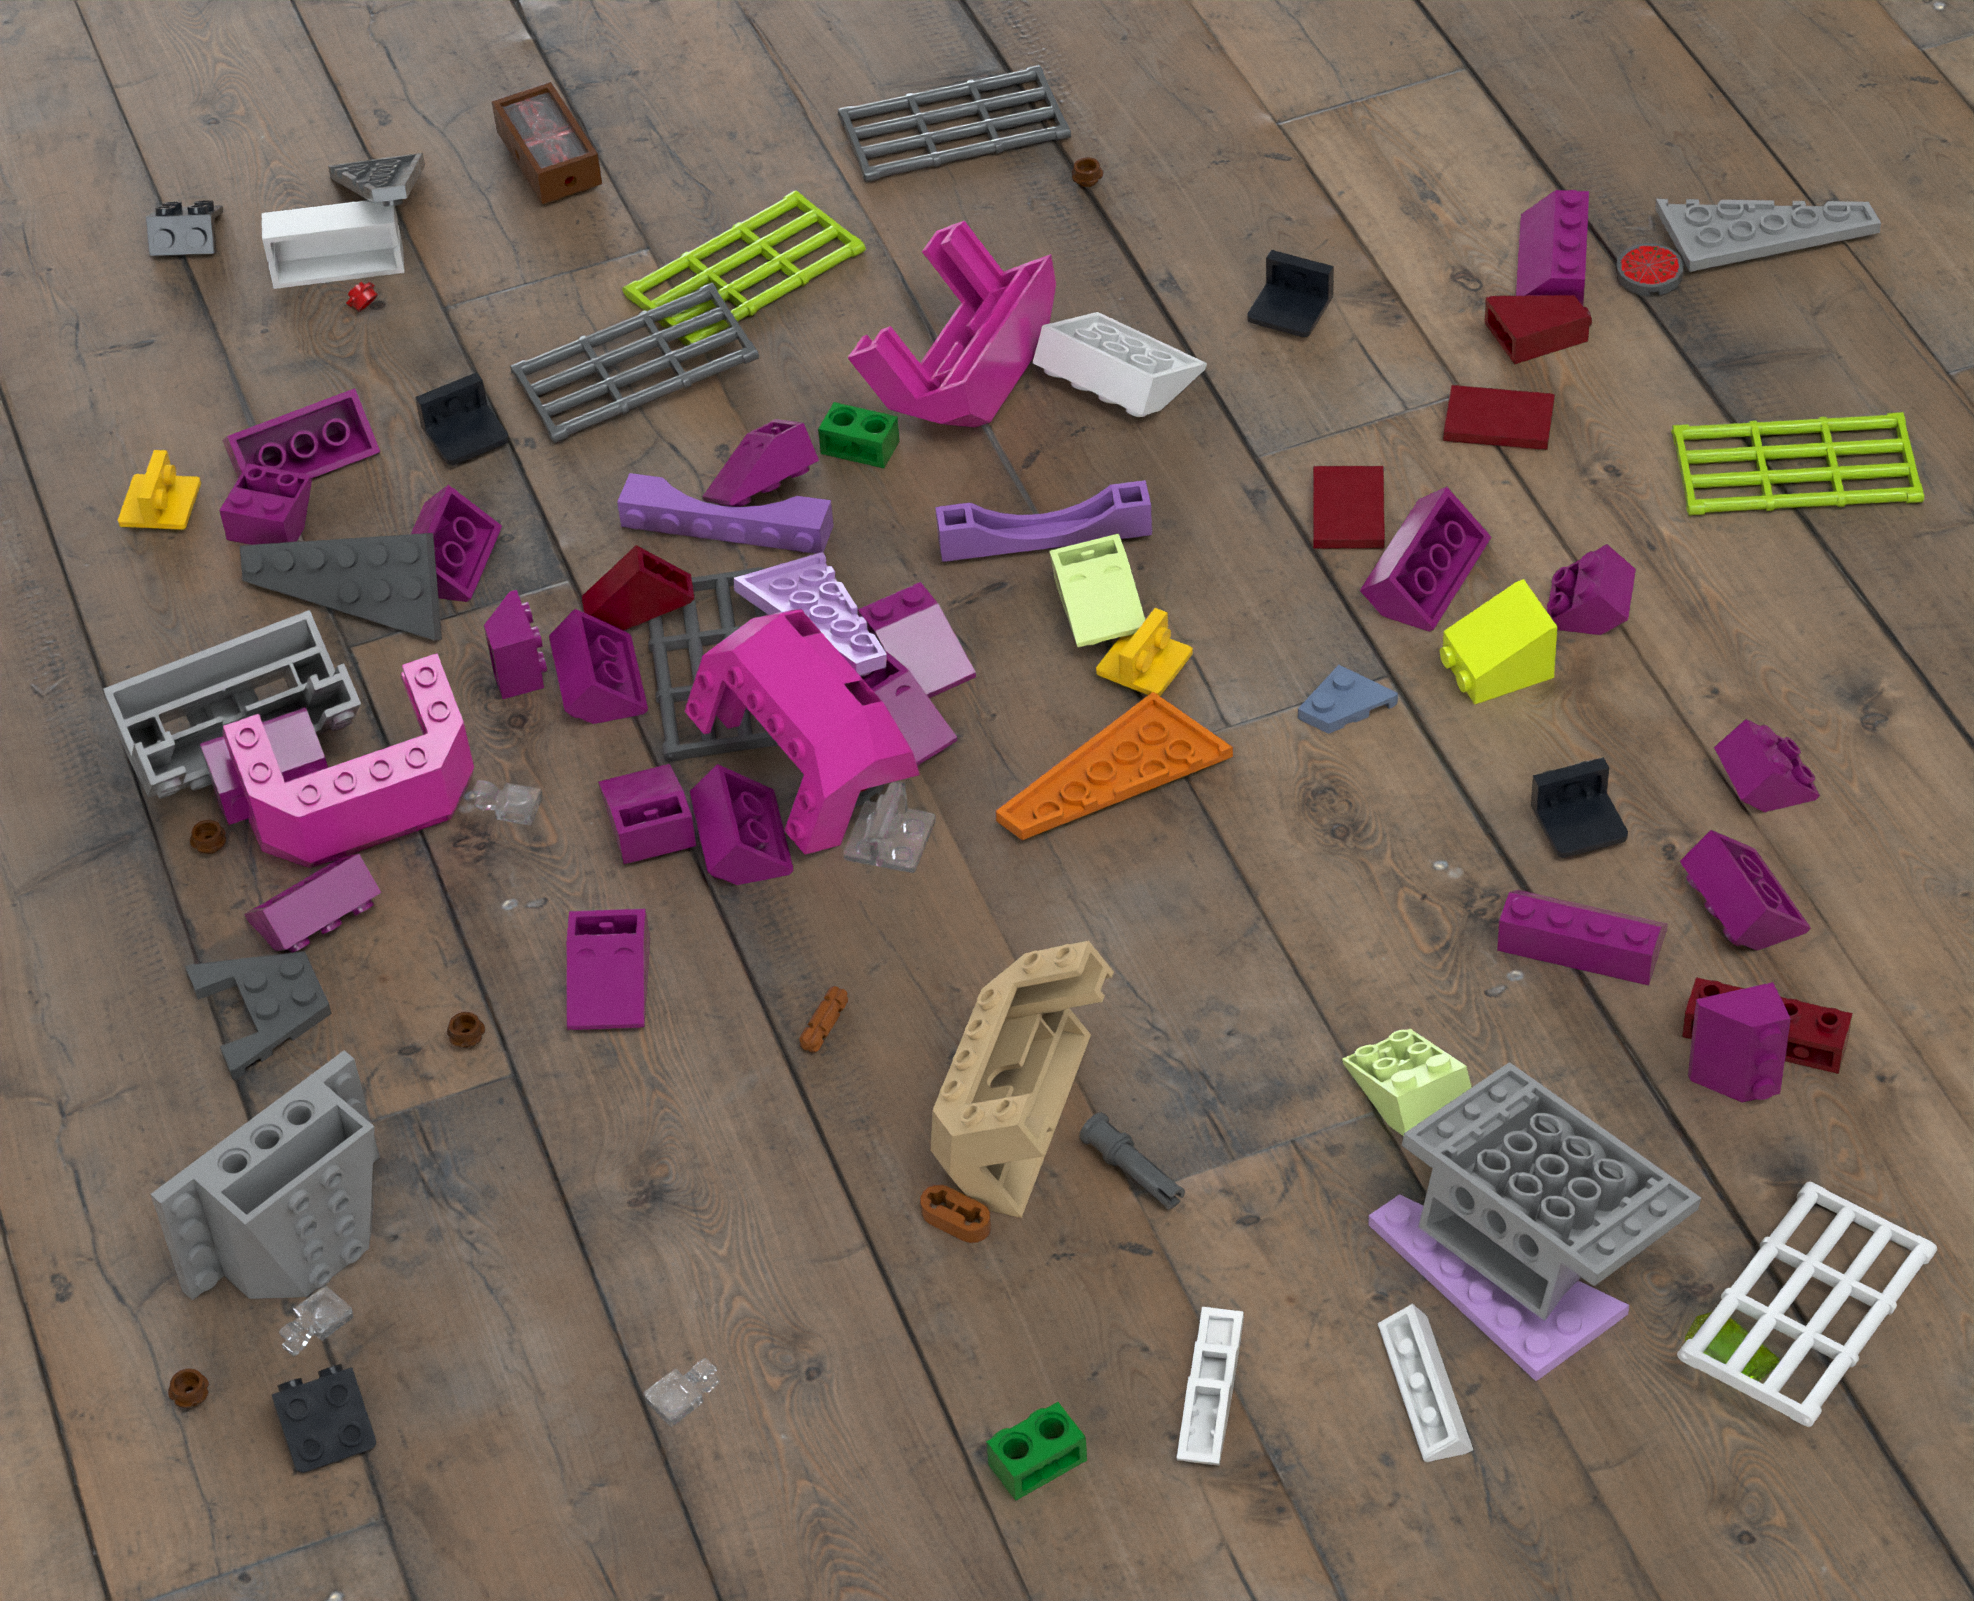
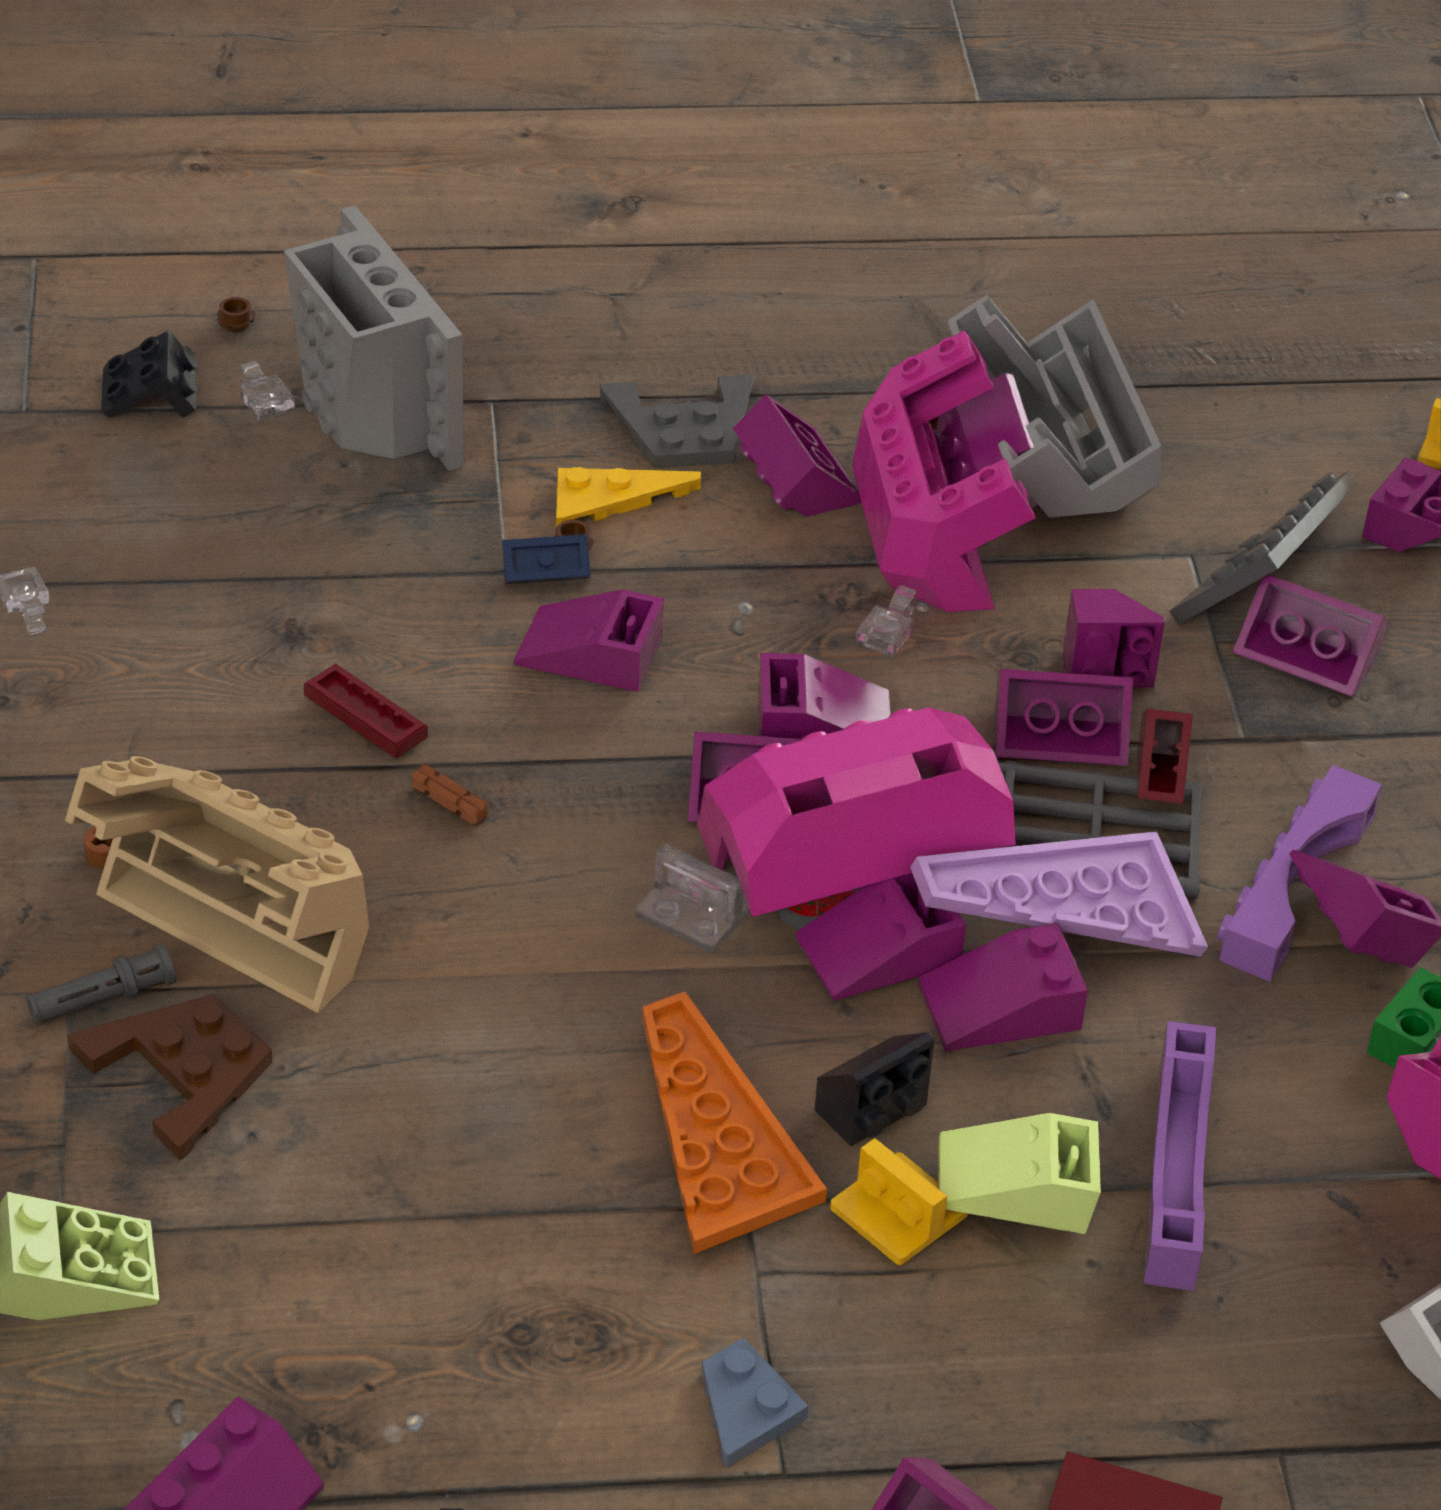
camera: 100 degrees right, 5 degrees down
(387, 1031) = (616, 490): none -> yellow wing
(507, 1034) = (545, 559): none -> dark blue plate
(745, 1101) = (366, 710): none -> dark red plate
(1048, 680) = (876, 1087): none -> black slope
(1170, 1082) = (196, 1048): none -> reddish brown wing

